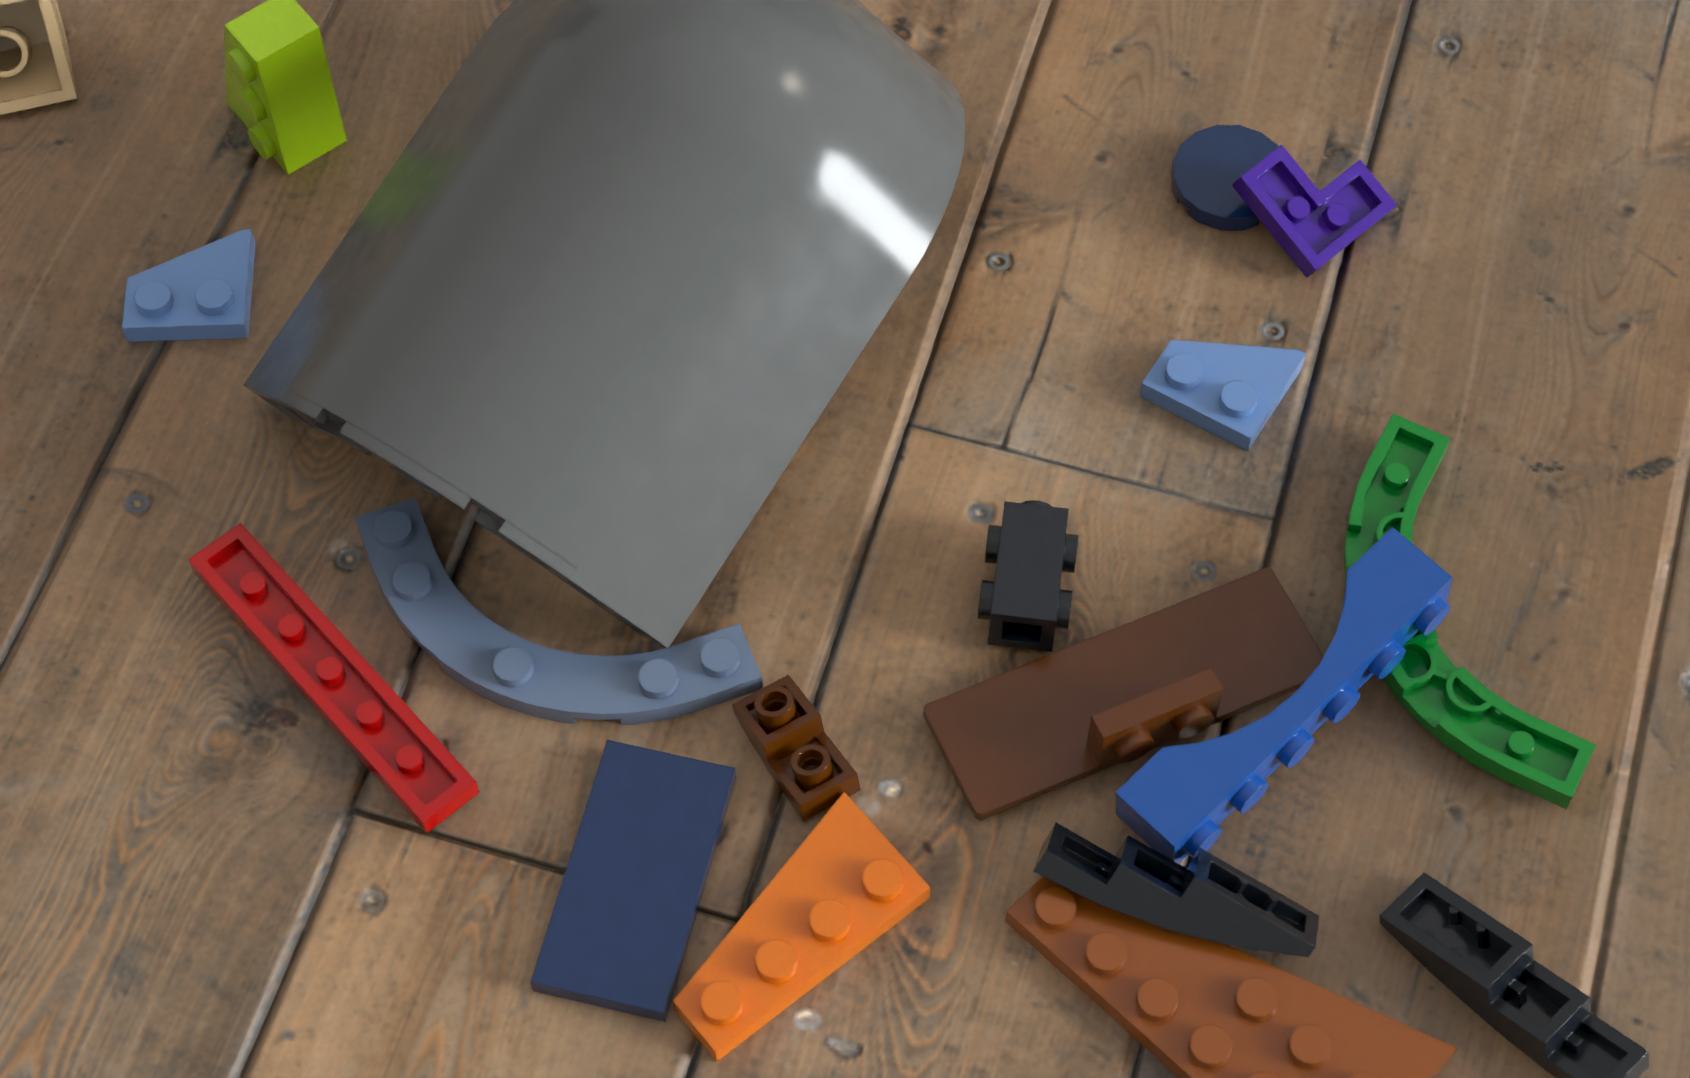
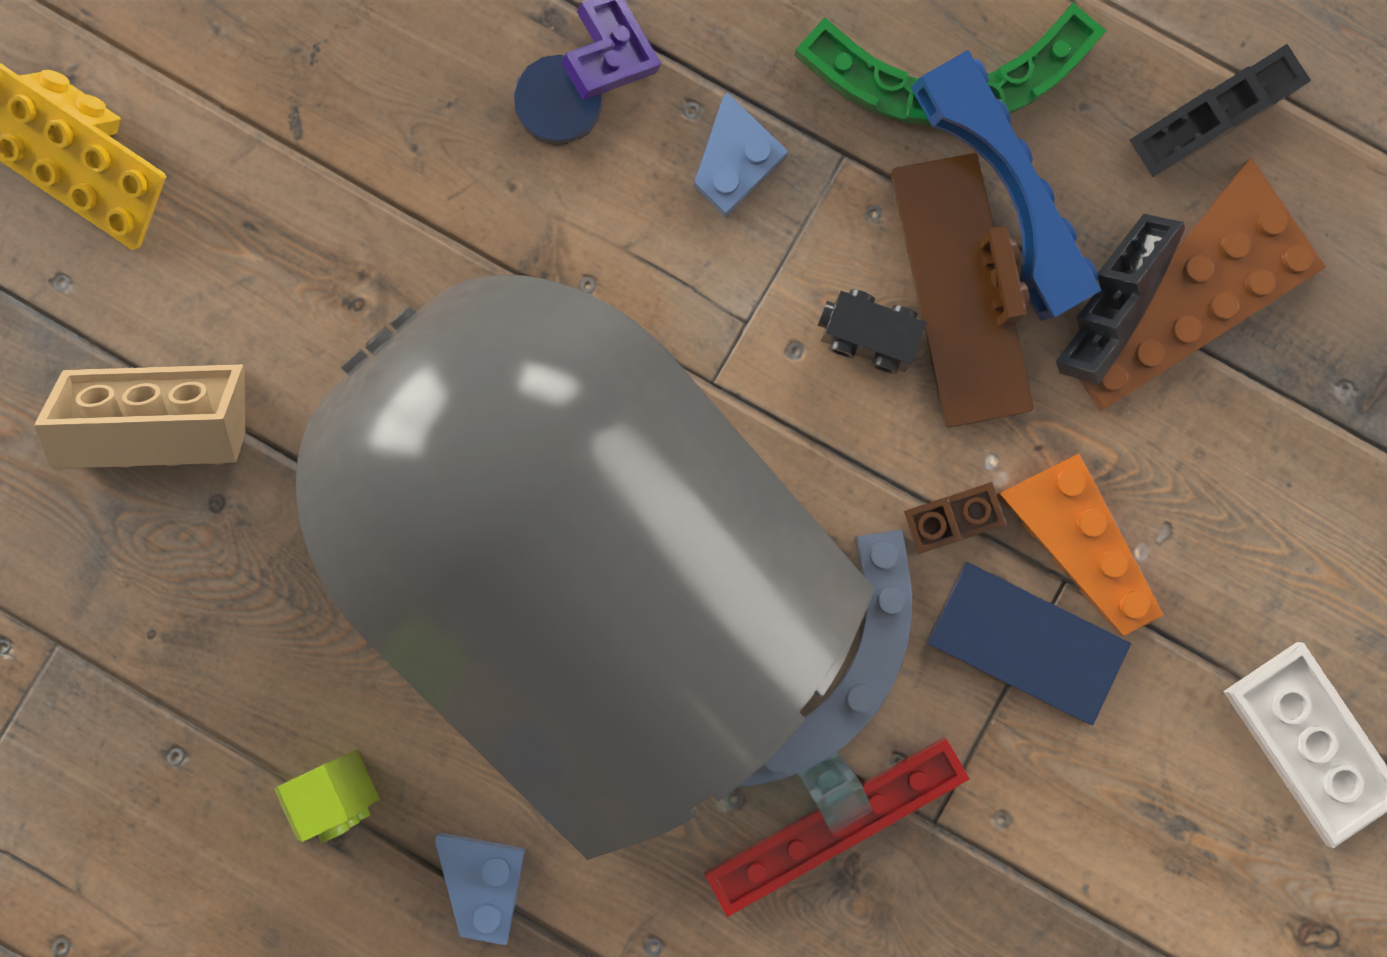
camera: 85 degrees left, 25 degrees up
(369, 643) = (836, 792): none -> clear light blue slope

